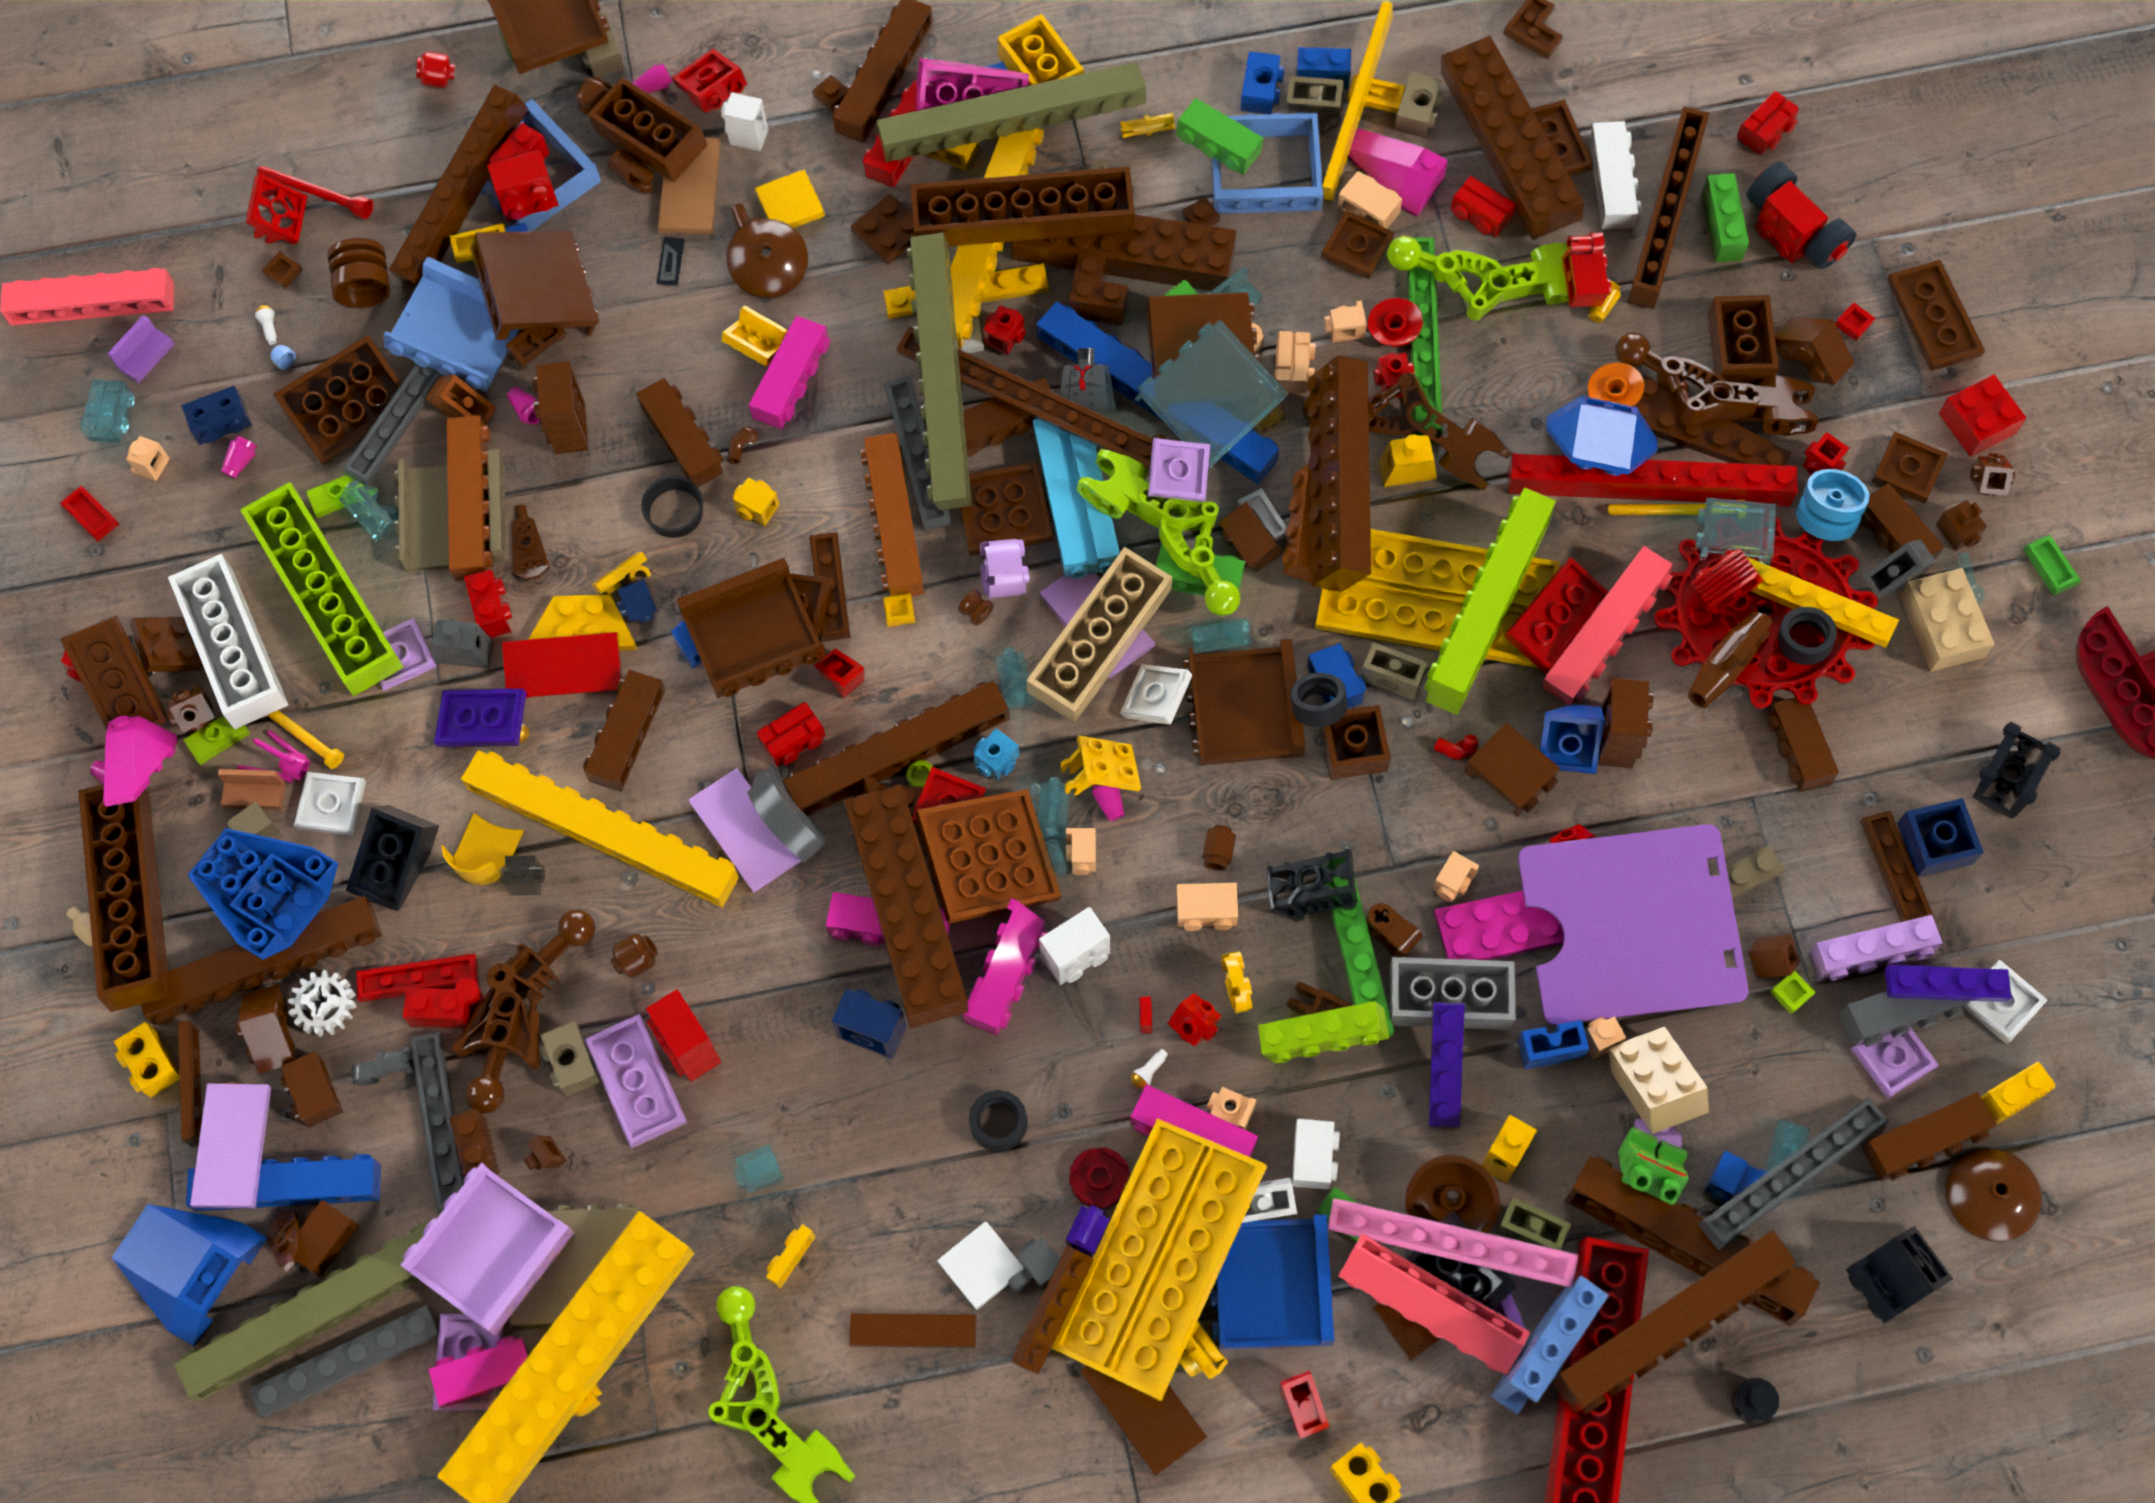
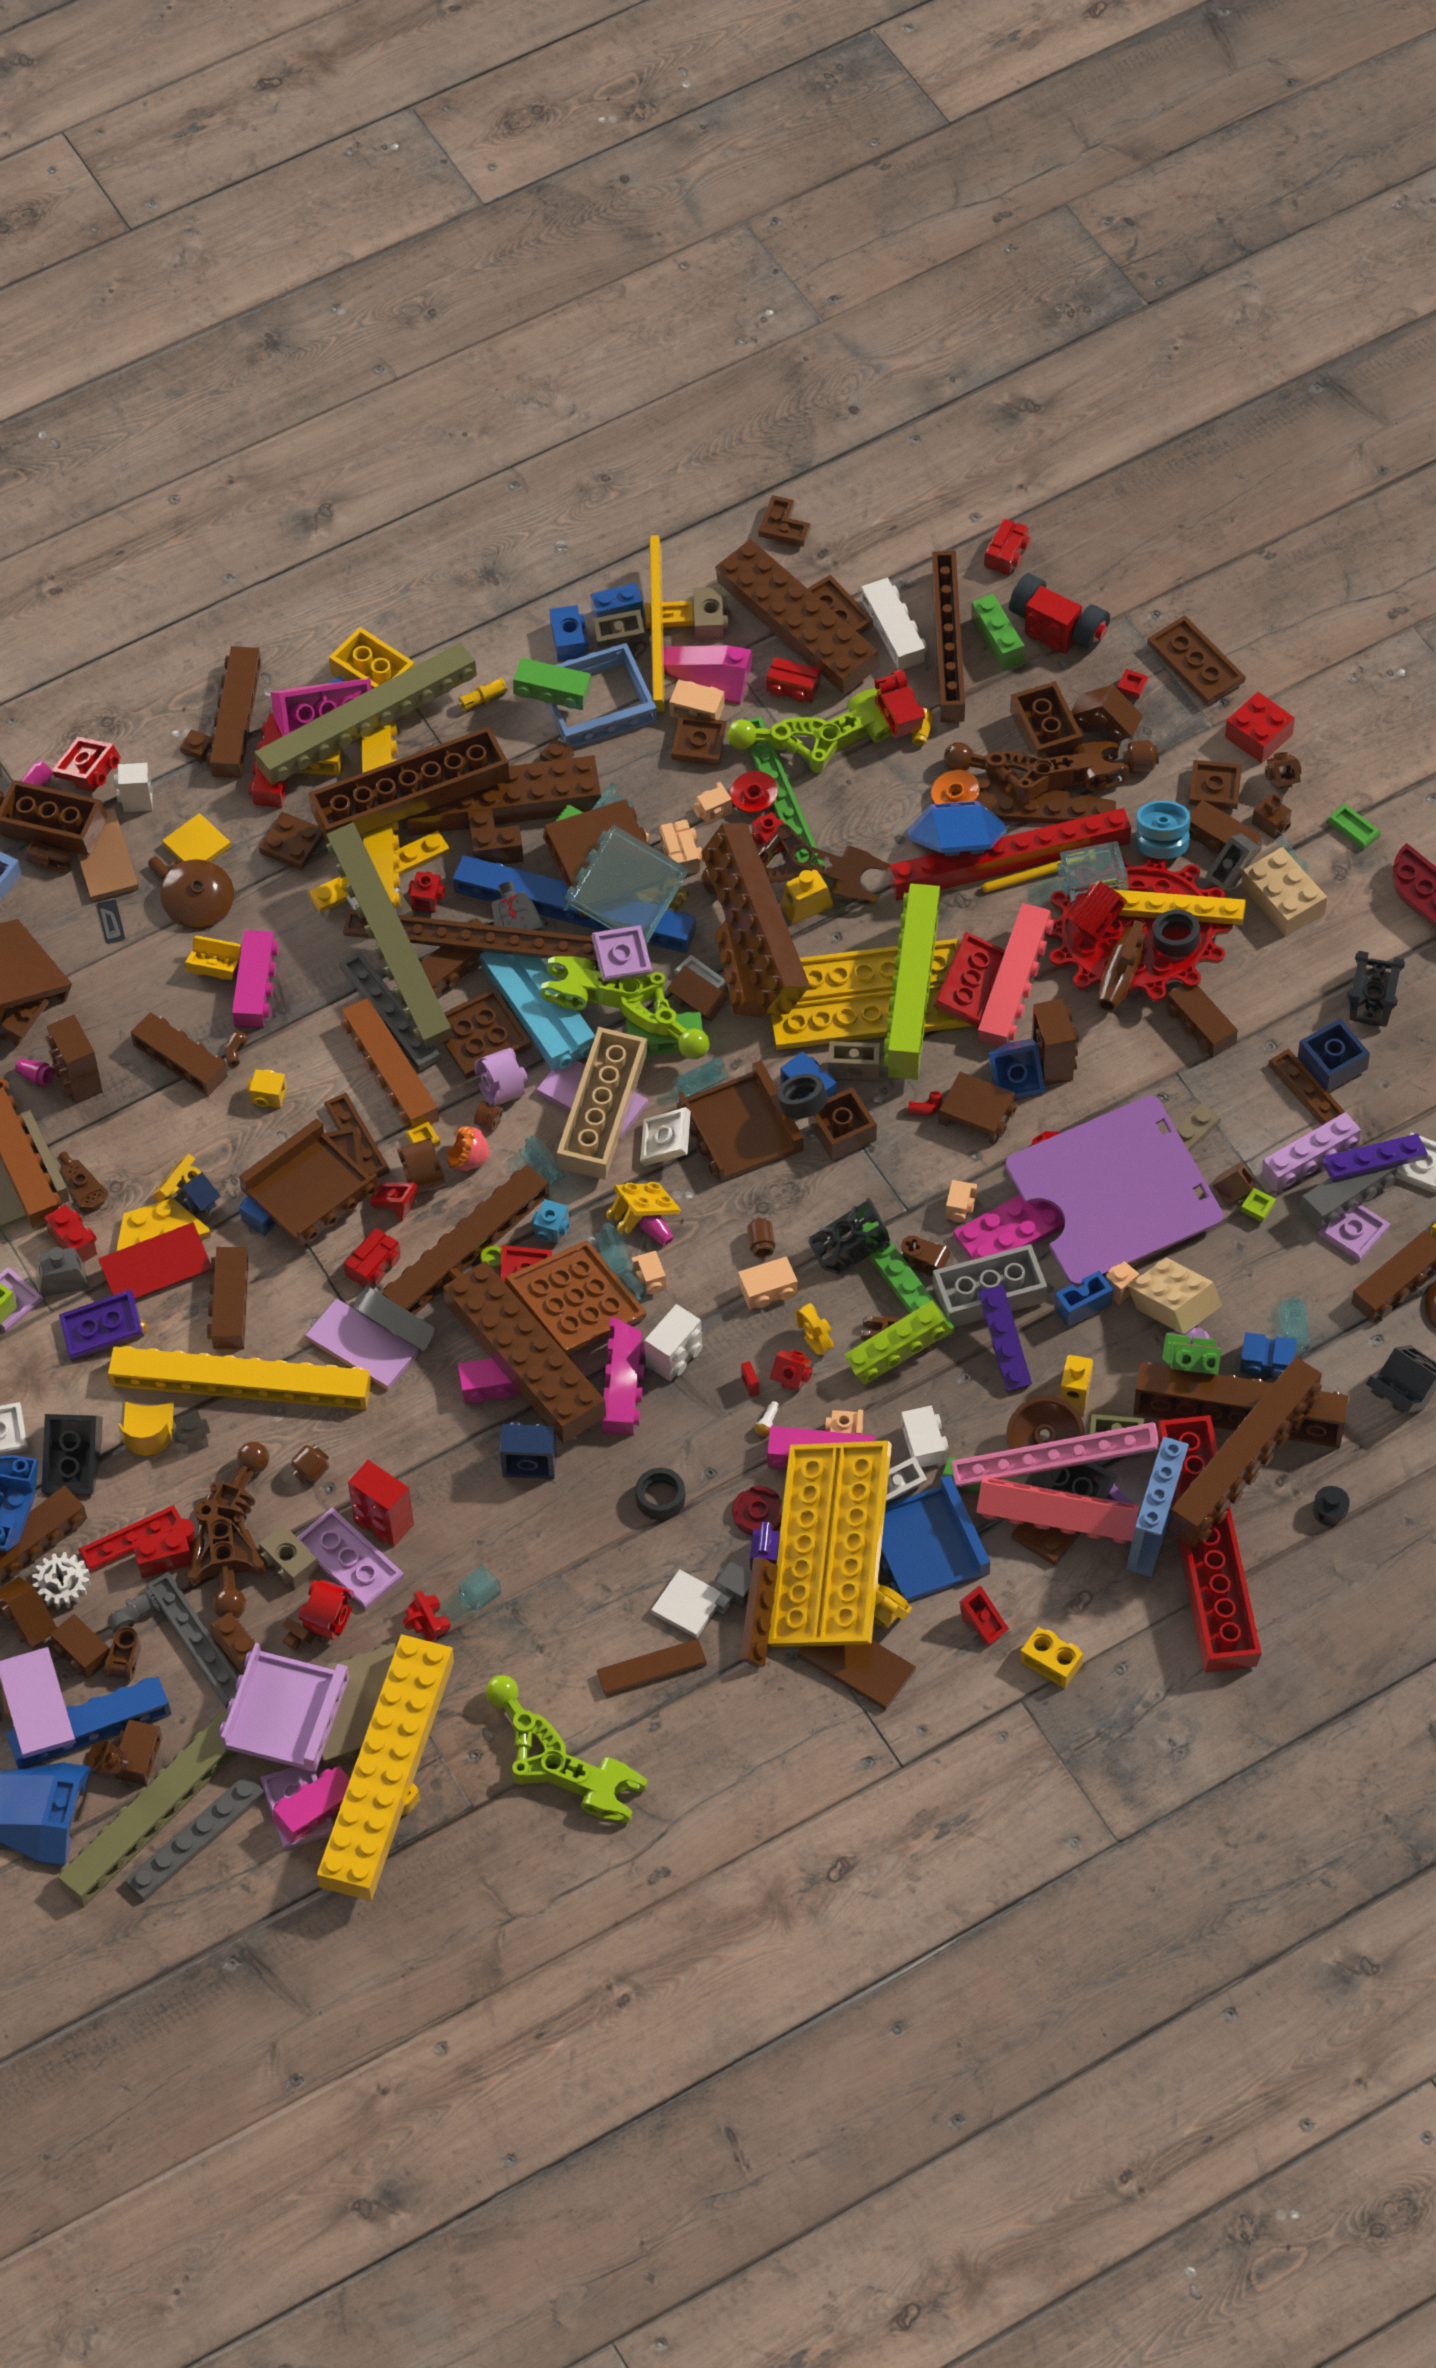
camera: 20 degrees left, 10 degrees down
(352, 1117) = (123, 1659): none -> reddish brown piece
(581, 1140) = (326, 1609): none -> red brick
(667, 484) = (195, 1094): black tyre -> none
(689, 1170) = (422, 1618): none -> red hips
(782, 1266) = (533, 1634): yellow plate -> none
(881, 645) = (422, 1166): none -> reddish brown brick
(940, 642) = (468, 1150): none -> hair
(1792, 1173) = (1302, 1329): dark grey tile -> none
(1825, 454) = (1143, 791): red brick -> none
(1836, 409) = (1141, 756): none -> reddish brown head

